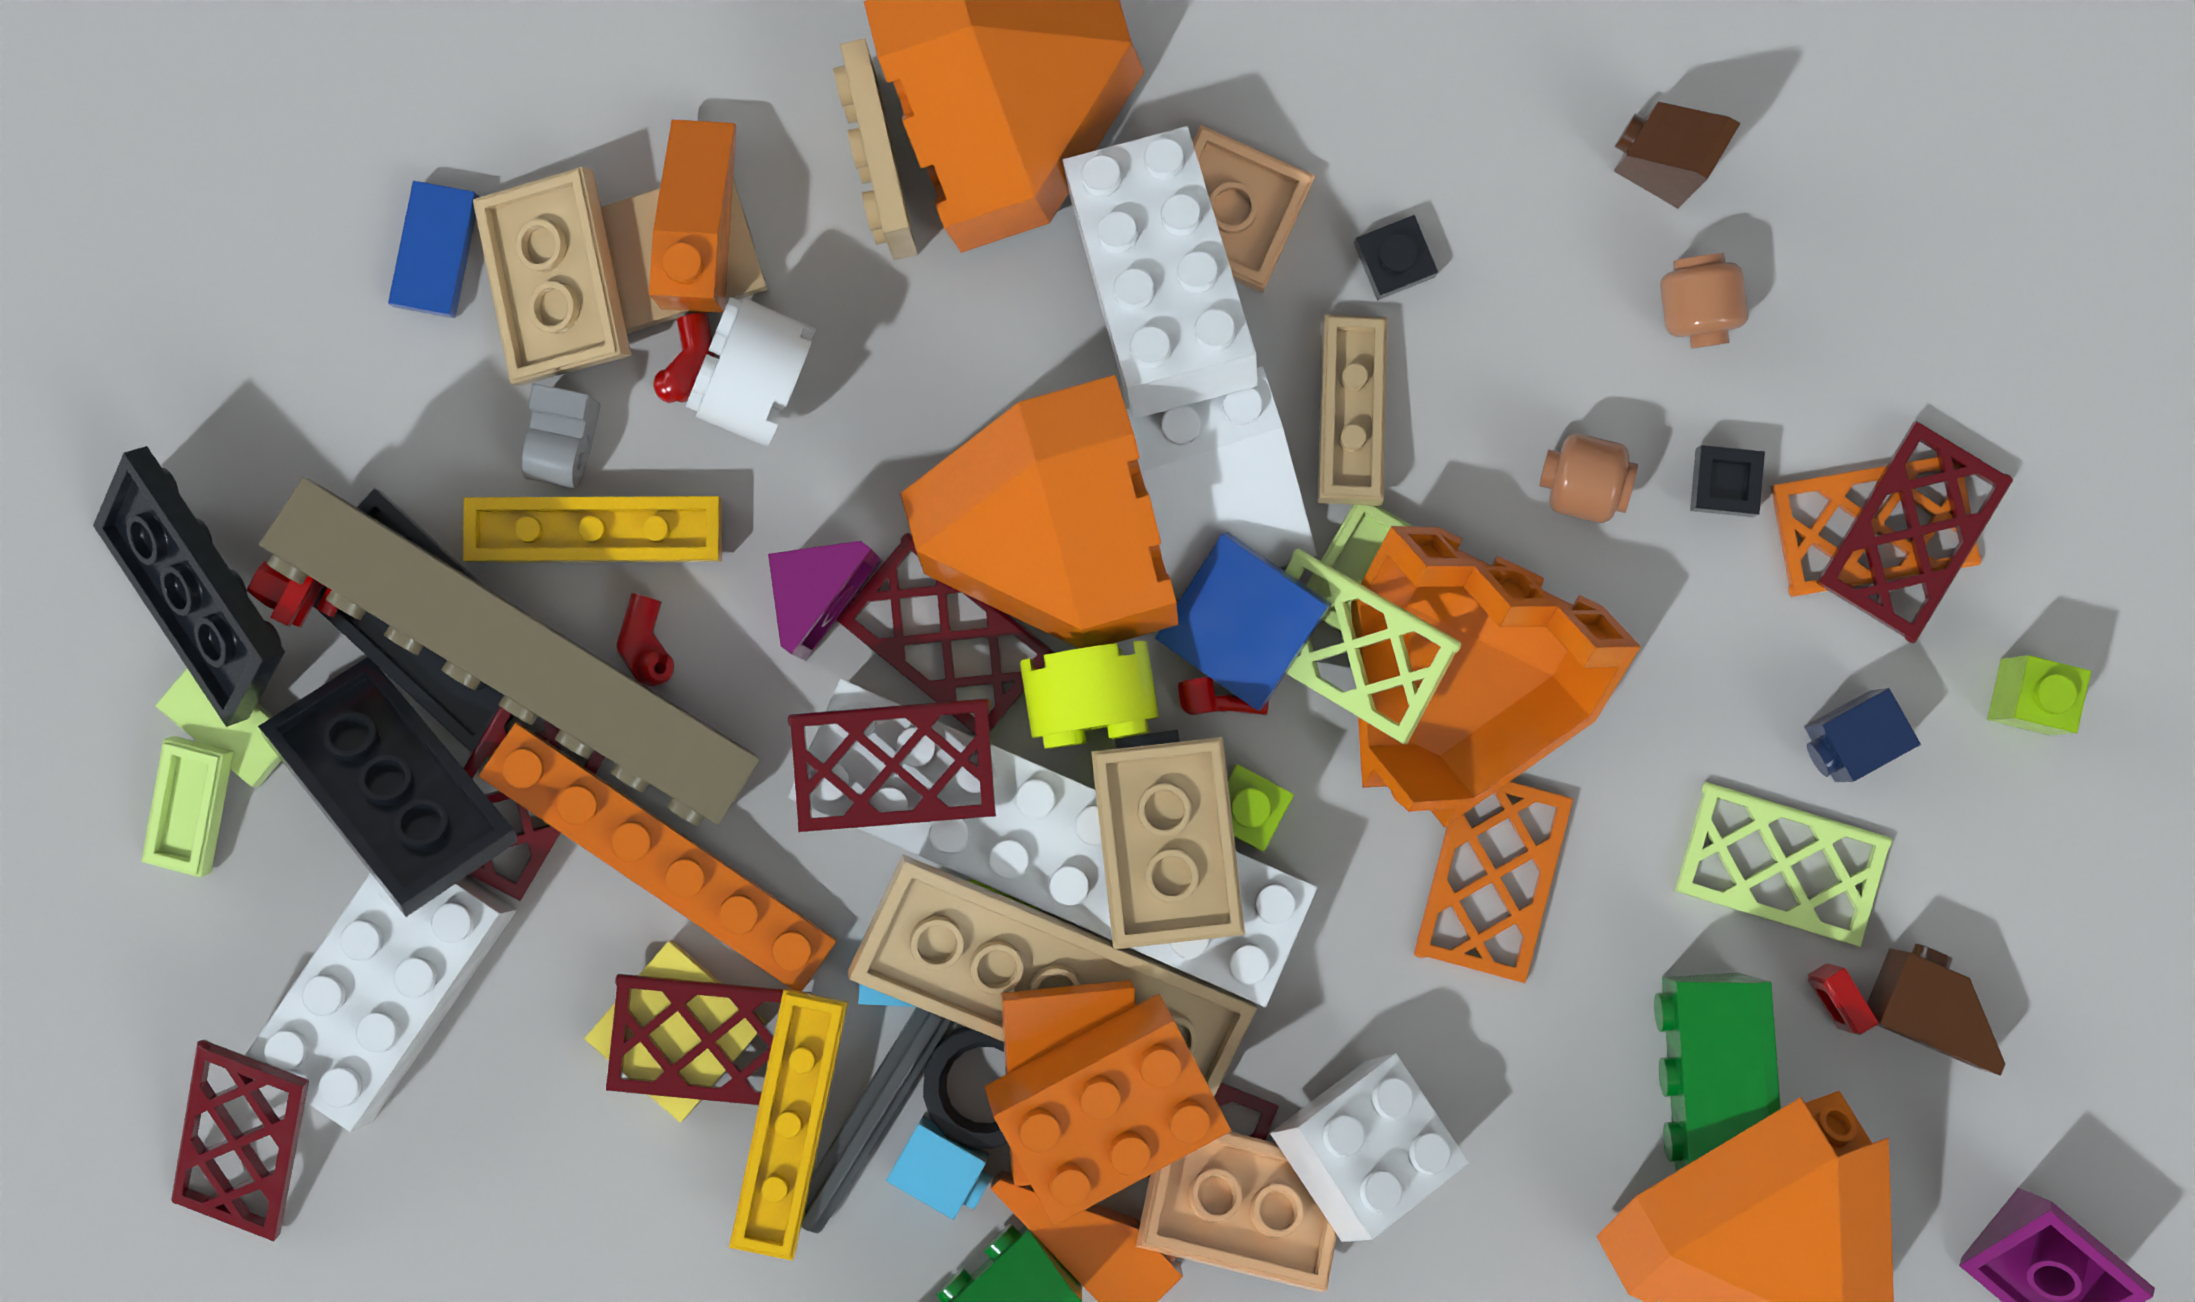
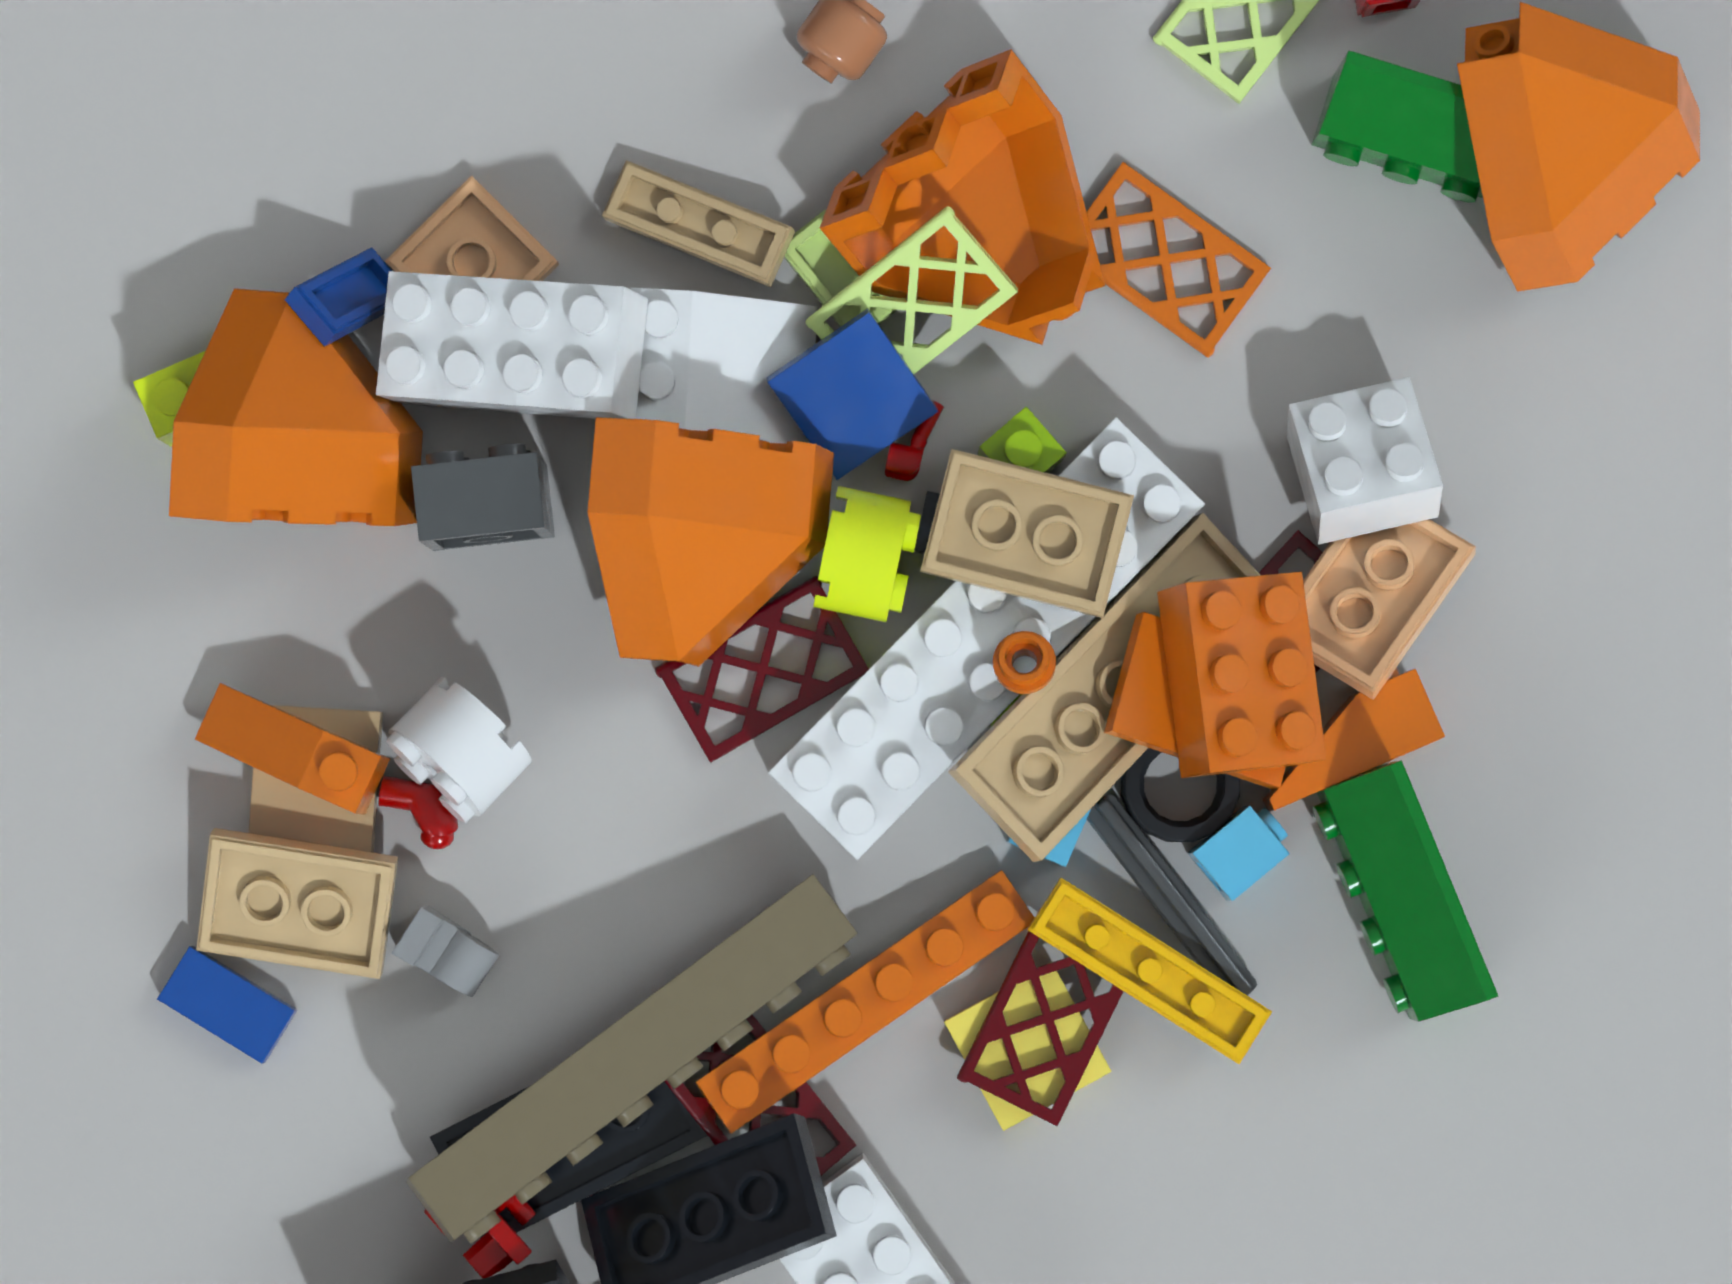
camera: 70 degrees left, 0 degrees up
(592, 529) = (543, 952): yellow plate -> none
(639, 645) = (667, 949): red arm -> none
(815, 589) = (675, 764): magenta slope -> none
(855, 724) = (832, 709): dark red window -> none
(874, 150) = (299, 562): tan plate -> none
(1000, 302) = (482, 499): none -> dark grey brick
(1055, 877) = (1024, 644): none -> orange plate
(1147, 93) = (342, 297): none -> blue tile
(1395, 257) = (573, 131): black plate -> none

